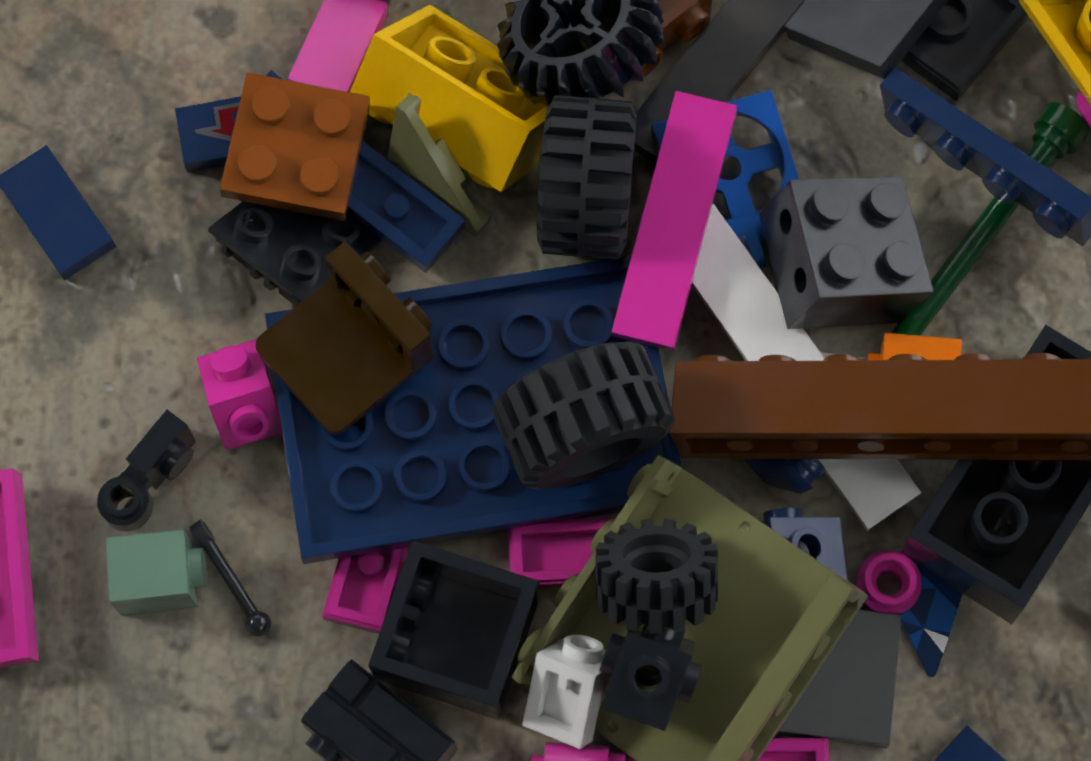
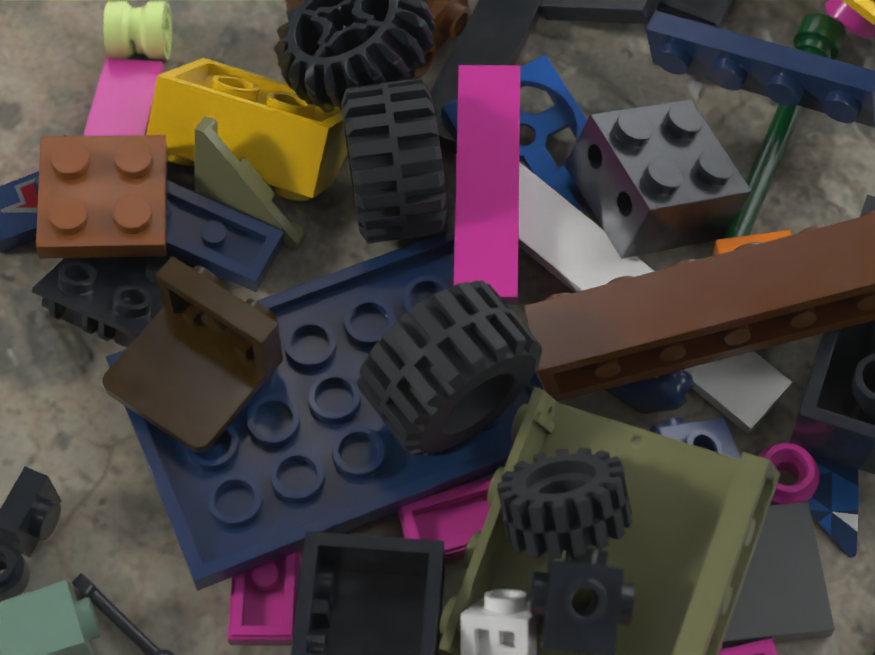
camera: 15 degrees left, 10 degrees down
(240, 395) = (98, 443): dark pink bracket -> none

